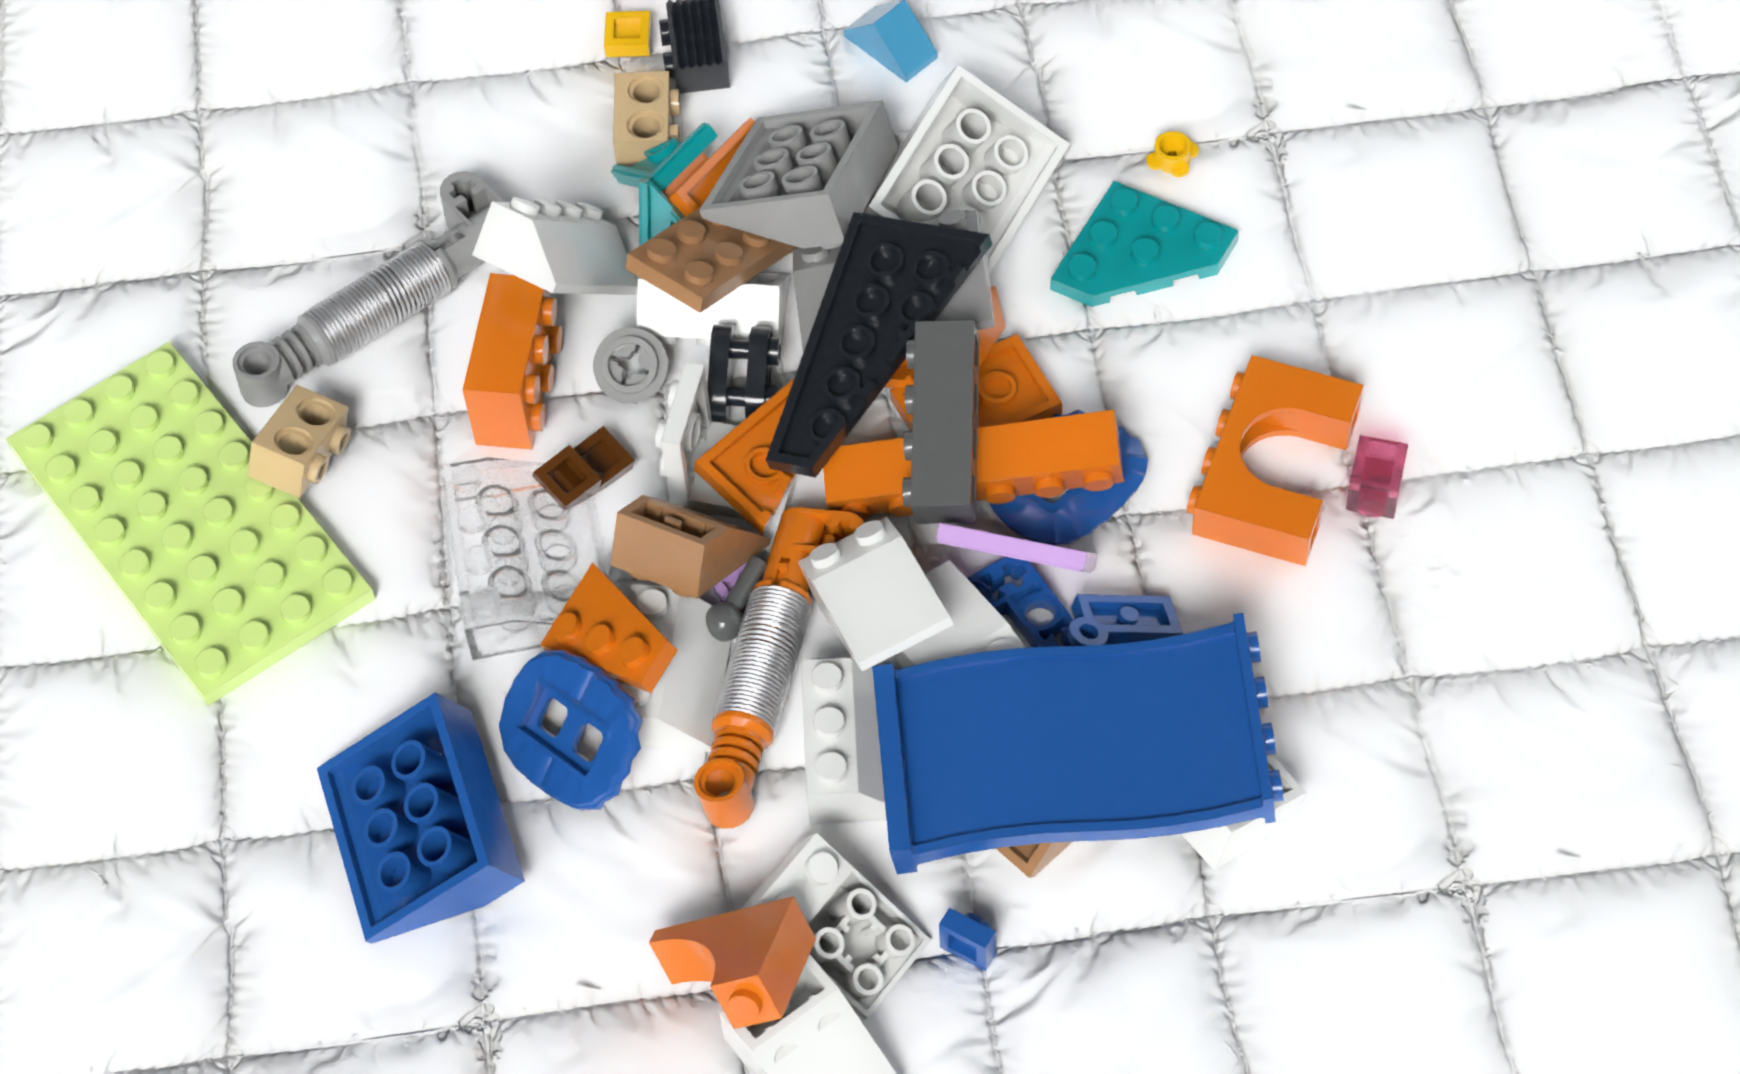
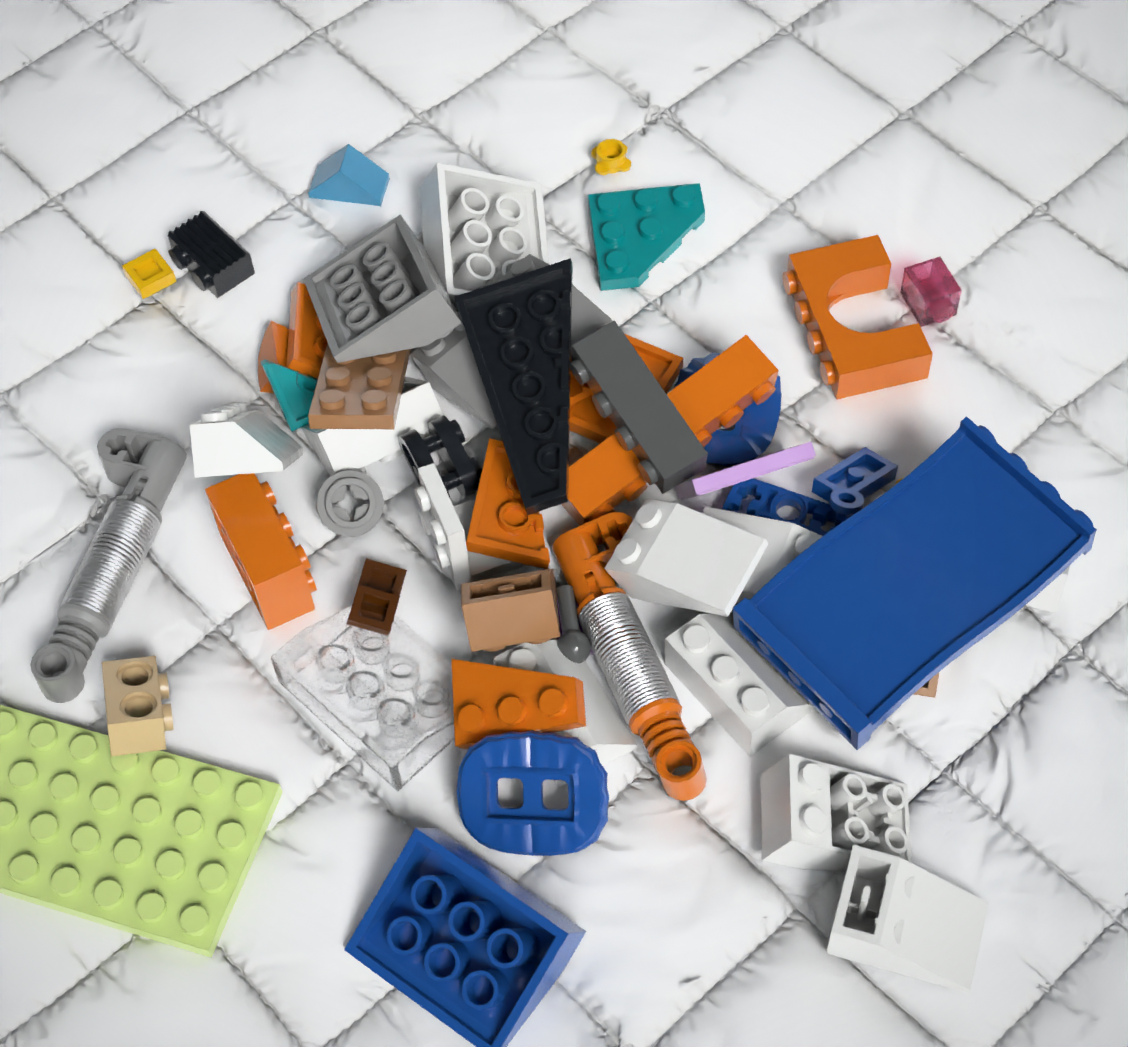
camera: 35 degrees left, 0 degrees up
(643, 114) = (214, 326): tan brick -> none
(666, 159) = (257, 345): teal tile -> none
(745, 953) = (814, 871): orange arch -> none
(968, 938) = (939, 765): blue plate -> none

